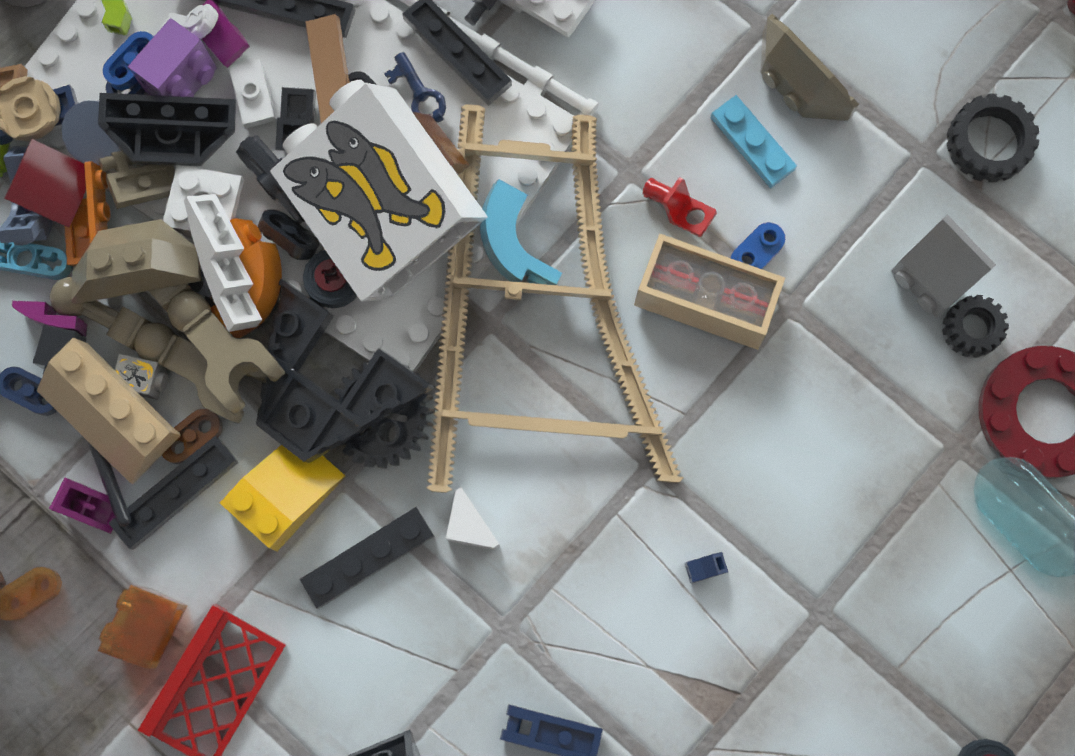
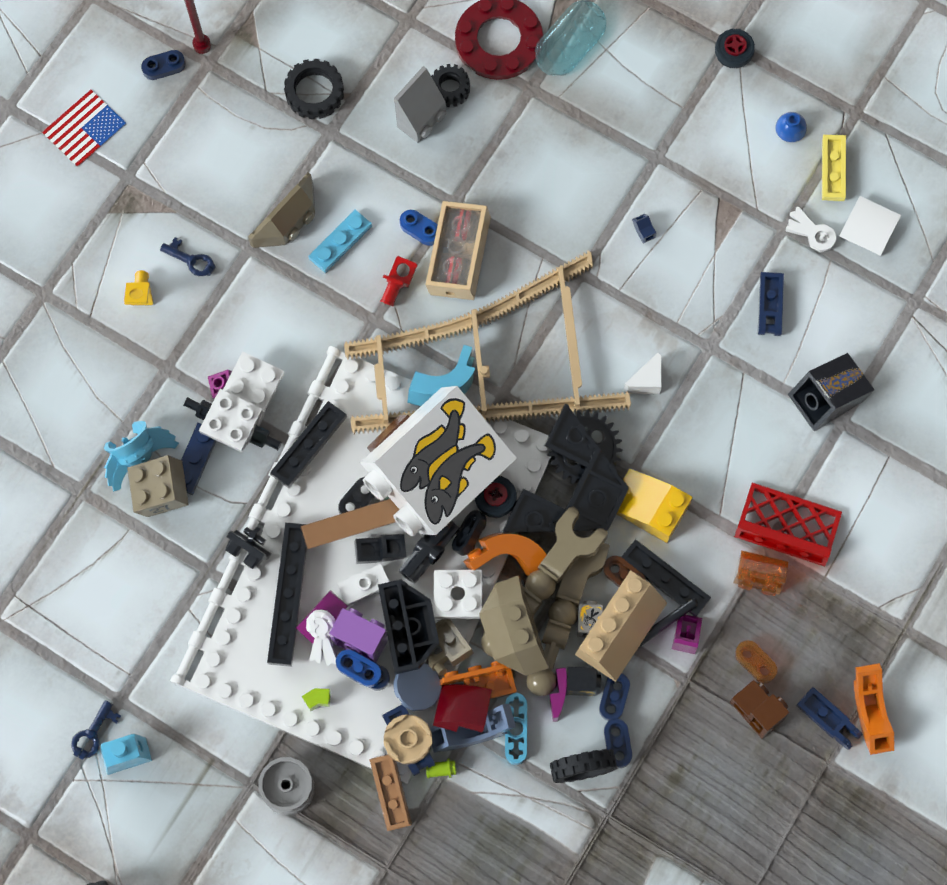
camera: 100 degrees left, 5 degrees down
(219, 258) = (495, 564): white slope -> none
(366, 558) = (682, 442): black plate -> none
(405, 69) = (327, 479): dark blue piece -> none

